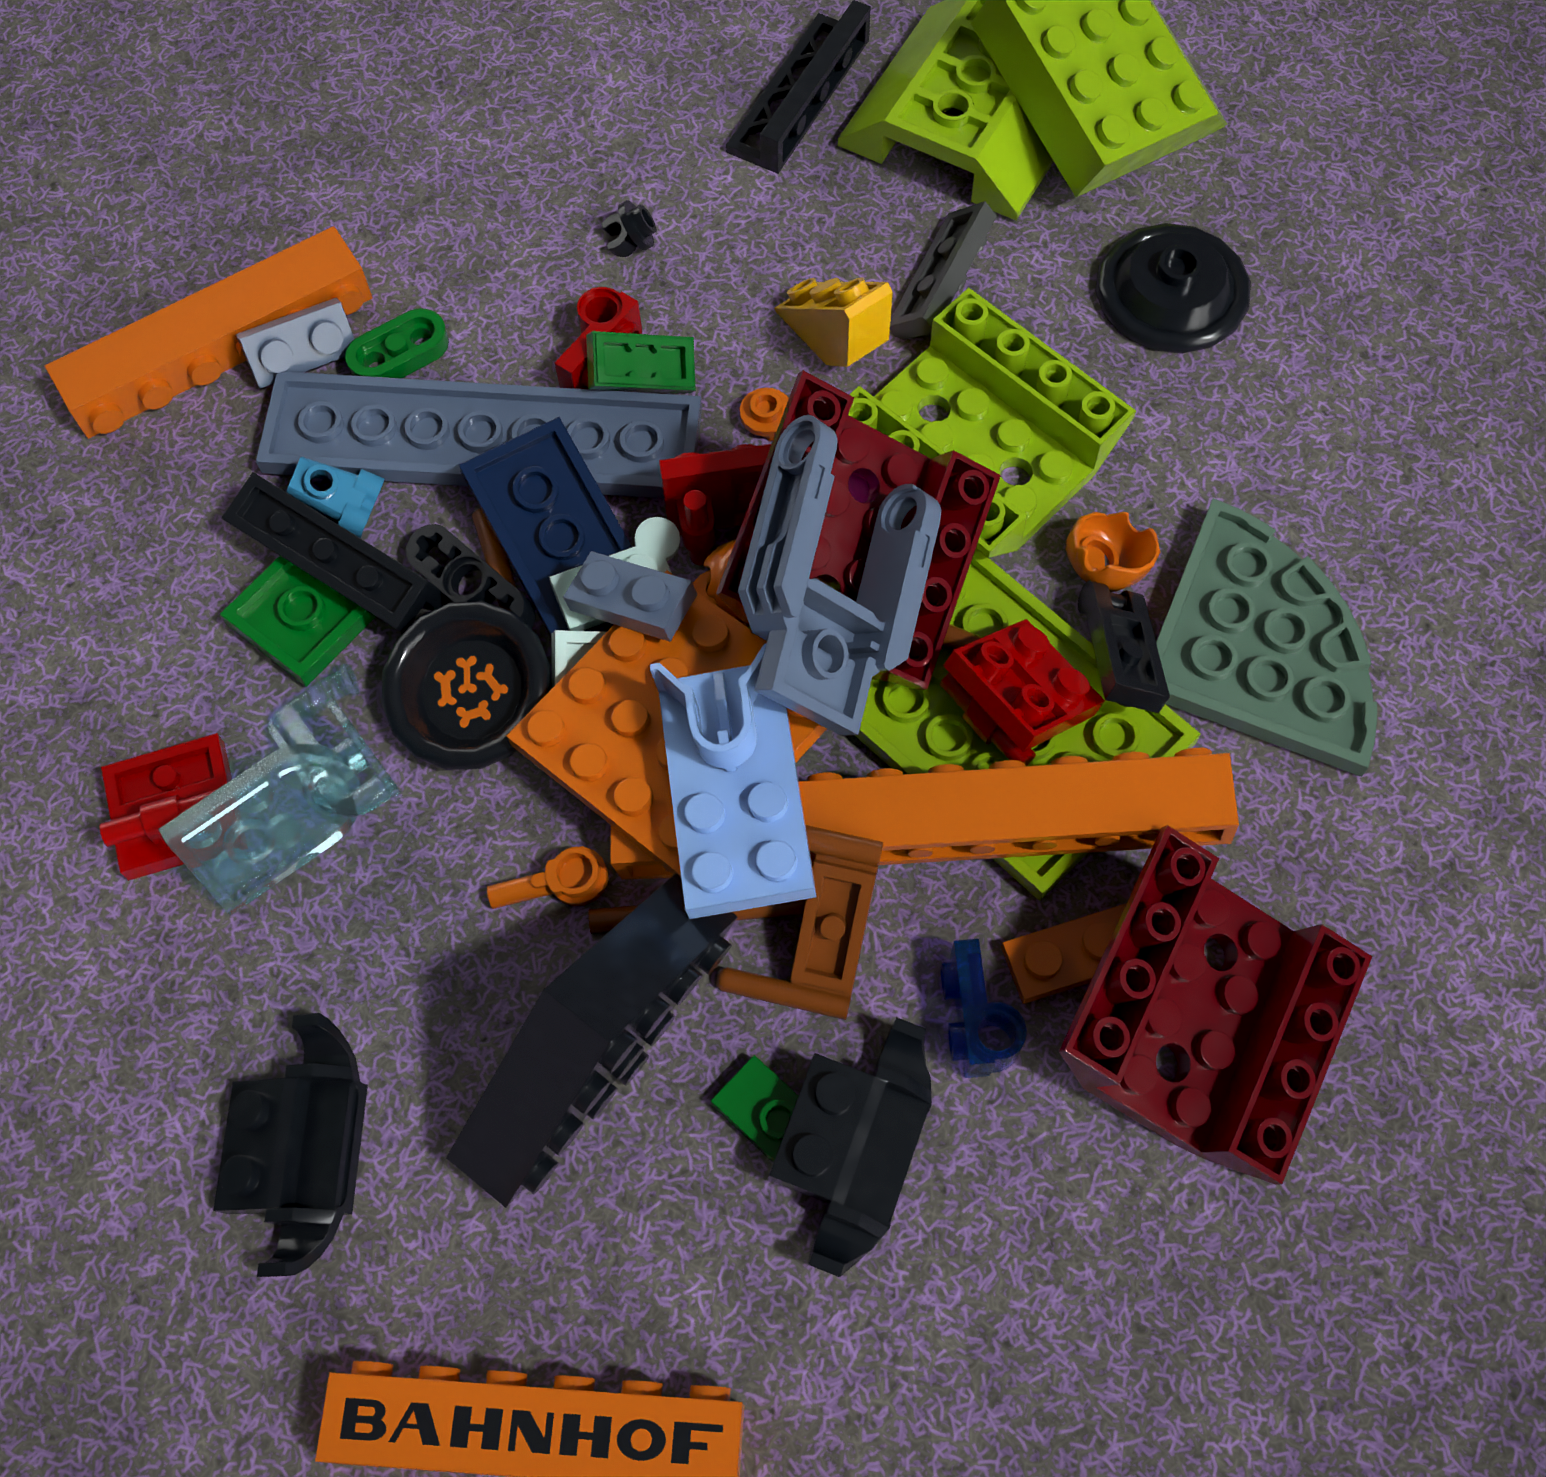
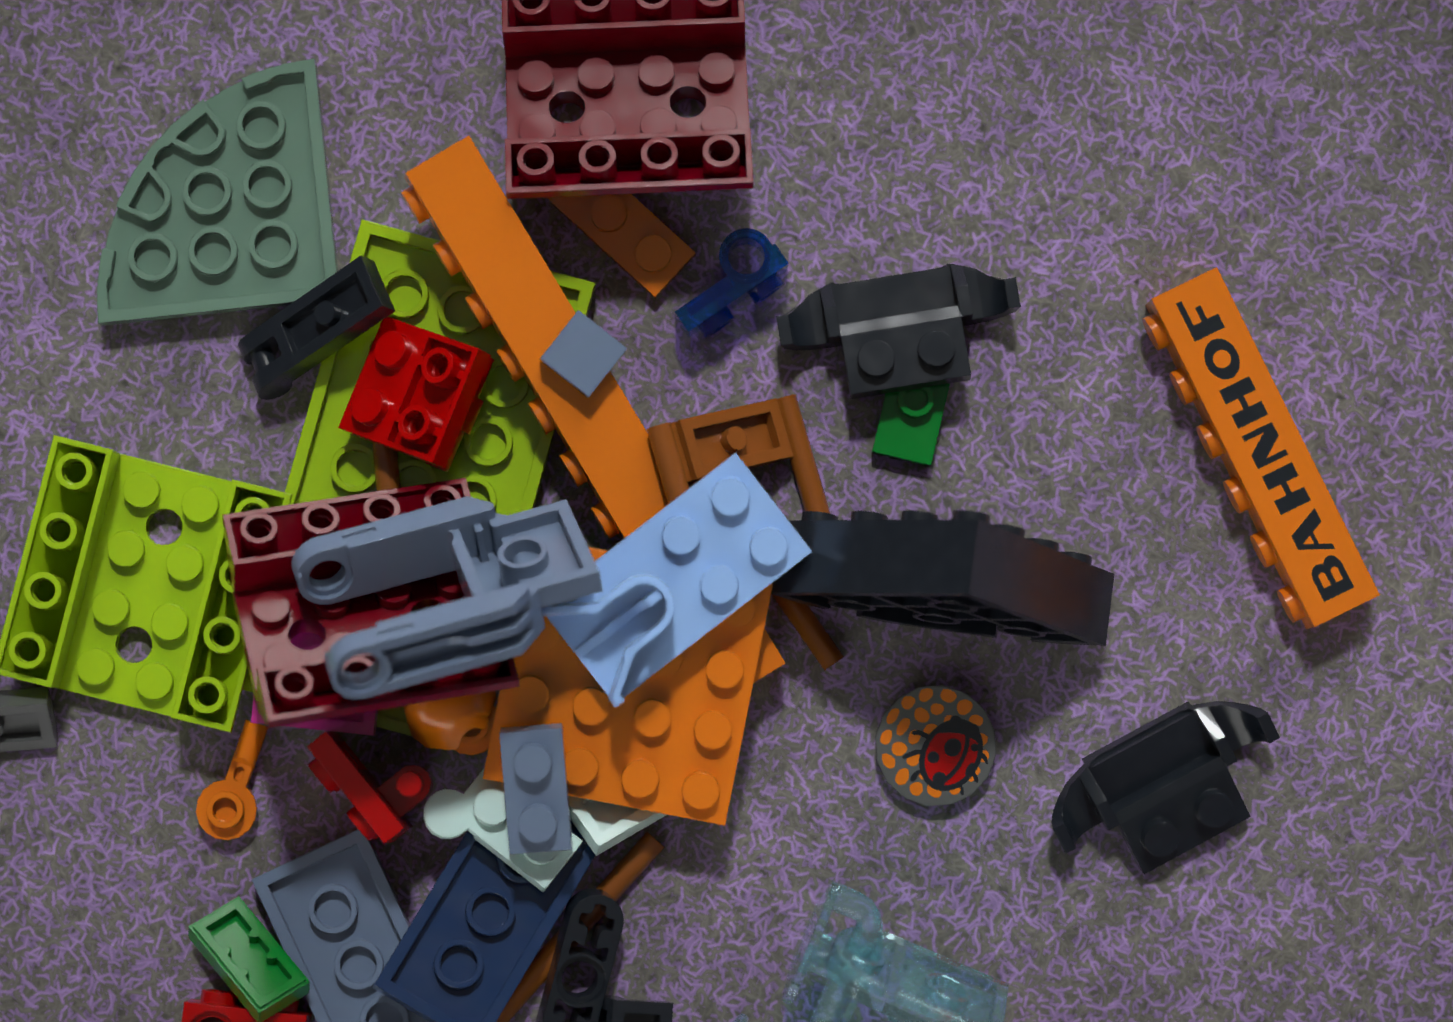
camera: 125 degrees left, 20 degrees up
(463, 684) = (688, 905): black piece -> none
(464, 966) = (935, 745): none -> tile
(574, 877) = (804, 700): orange plate -> none
(839, 318) = (85, 799): yellow slope -> none
(982, 820) = (583, 353): none -> sand blue tile
(1128, 550) = (198, 372): orange hair -> none

